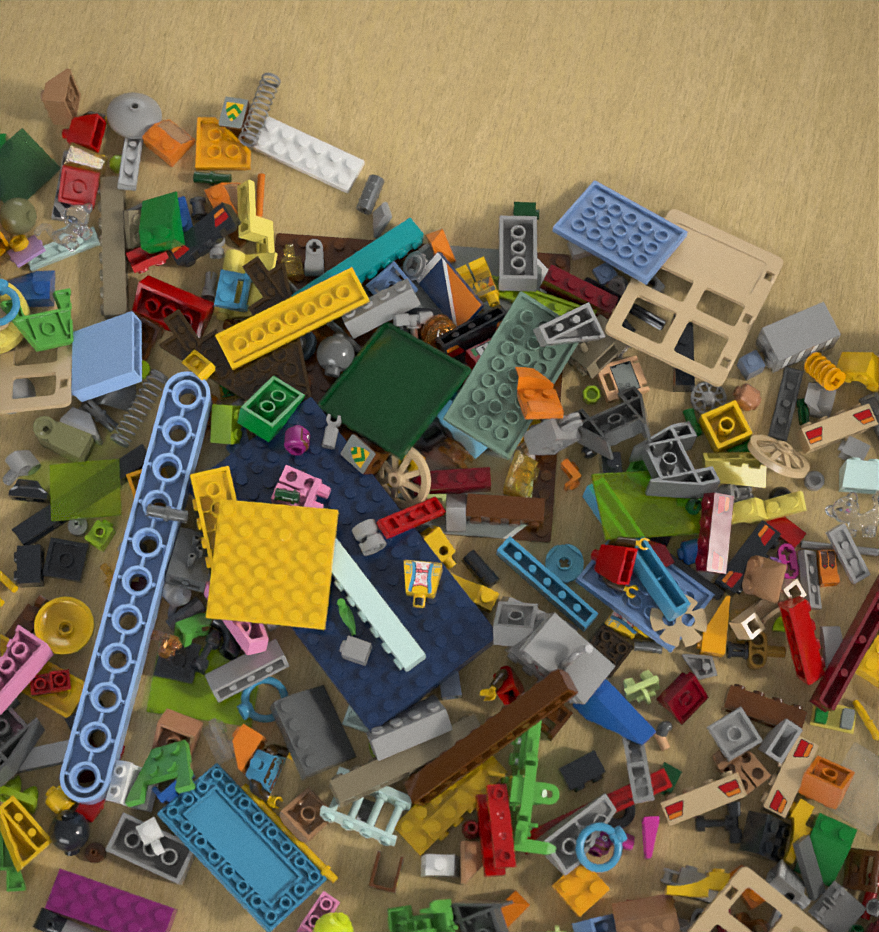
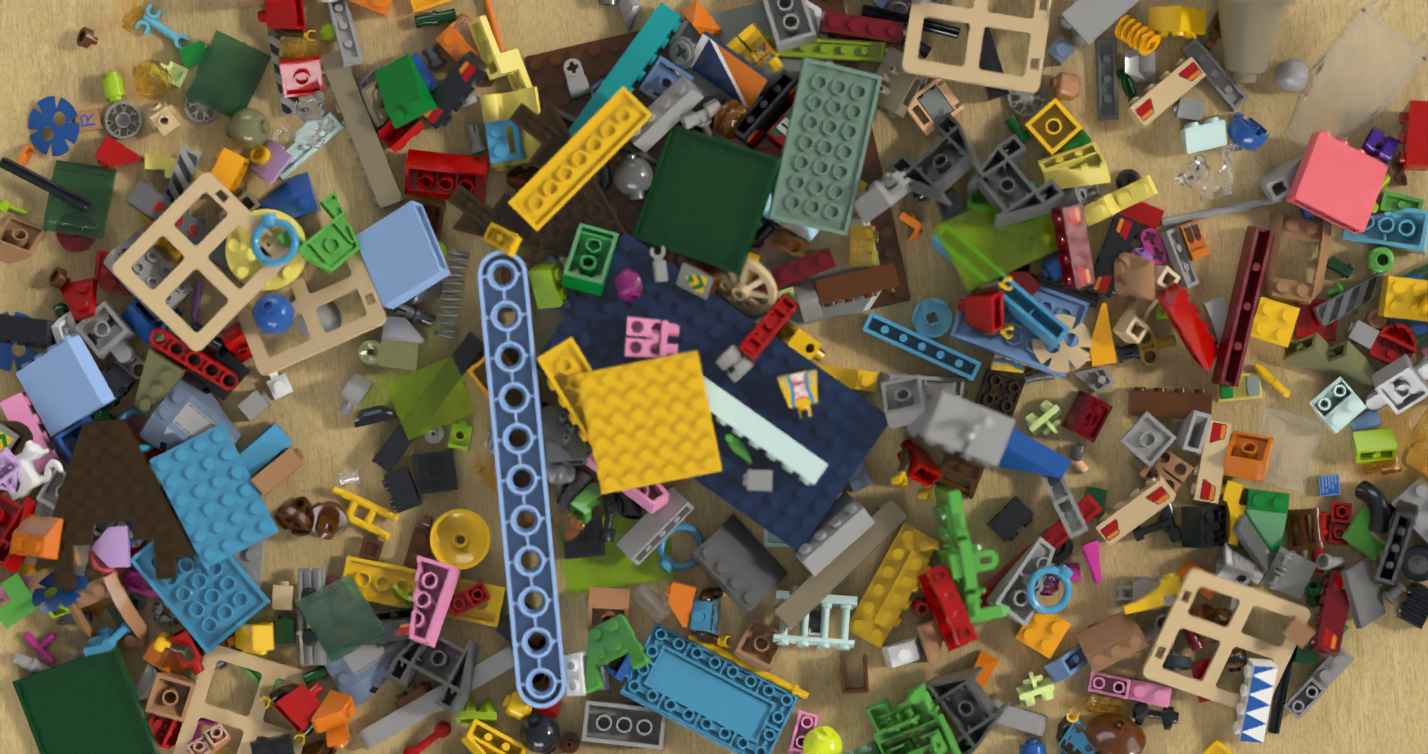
camera: 20 degrees left, 15 degrees up
(150, 834) = (619, 712): white plate -> none
(167, 513) = (528, 405): dark grey pin -> none
(287, 495) = (638, 350): dark green pin -> none
(292, 262) = (554, 90): clear yellow plate -> none
(480, 569) = (850, 351): black axle -> none
(490, 737) = (916, 523): reddish brown brick -> none
(537, 395) = (856, 165): orange piece -> none
(572, 327) = (866, 82): light grey wedge -> none
(591, 395) = (906, 132): lime tile -> none
(690, 504) = (1040, 223): dark green hinge -> none
(779, 451) = (1116, 137): tan wheel -> none
(814, 481) = (1157, 152): light grey tile -> none
(848, 553) = (1210, 220): light grey plate -> none

